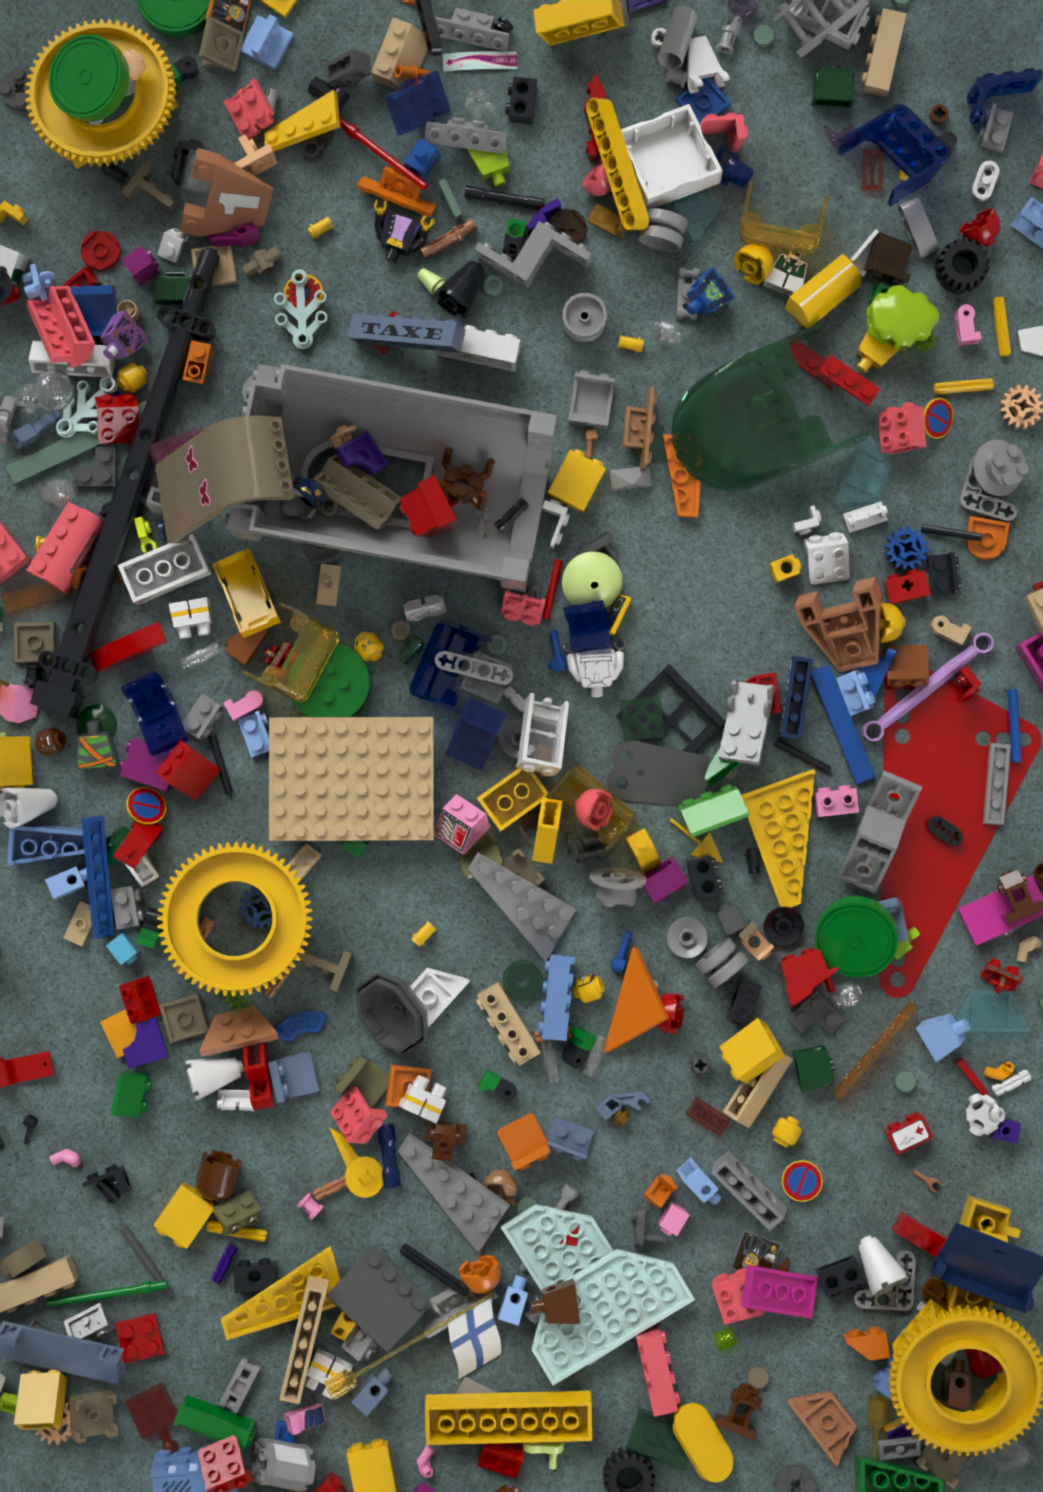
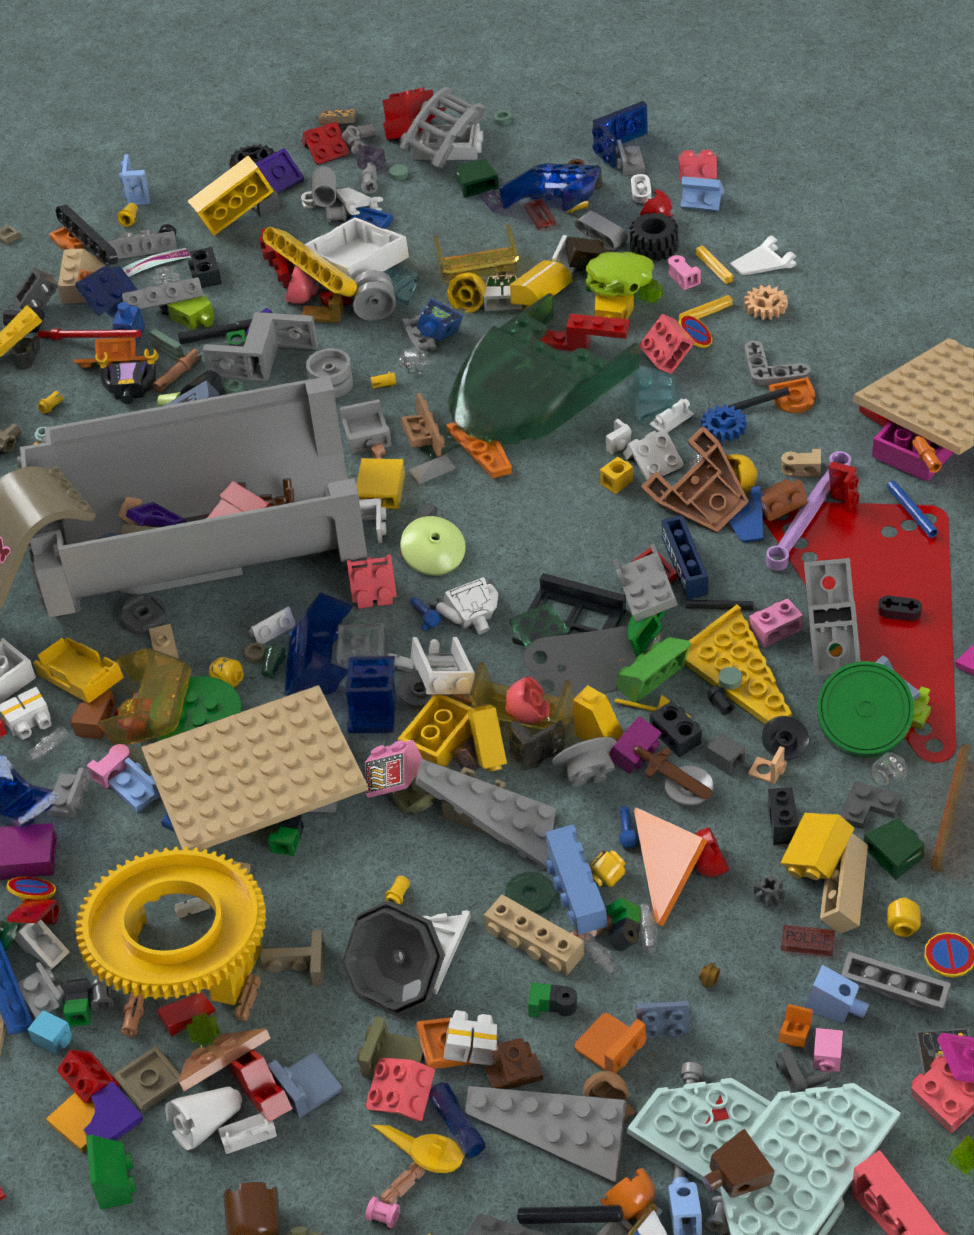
camera: 20 degrees left, 40 degrees down
(188, 770) = (68, 830): red brick -> none
(220, 763) = (104, 828): black bar -> none
(248, 902) = (192, 927): blue gear -> none
(300, 1022) = (291, 1031): blue tile -> none
(474, 666) = (343, 632): light grey beam -> none
(552, 589) = (396, 570): red bar -> none
(588, 626) = (443, 572): clear blue bracket -> none
(617, 612) = (470, 563): slope -> none
(623, 1099) = (689, 978): sand blue piece -> none
(672, 912) = (659, 763): none -> reddish brown sword
(721, 961) = (737, 784): light grey wheel -> none
(731, 124) = (397, 218): coral bracket -> none
(735, 170) = (418, 247): clear blue piece -> none
(747, 931) = (749, 754): dark tan tile -> none
(769, 848) = (730, 678): none -> sand green tile
(804, 974) = (833, 762): red piece -> none
(842, 724) = (745, 567): blue tile -> none
(855, 692) = (743, 531): light blue bracket -> none
(884, 52) = (506, 145): tan brick -> none
(918, 587) = (745, 442): red brick -> none
(943, 574) = (771, 430): black bracket -> none
(996, 784) = (926, 557): light grey tile -> none
(999, 467) = (774, 340): light grey piece -> none

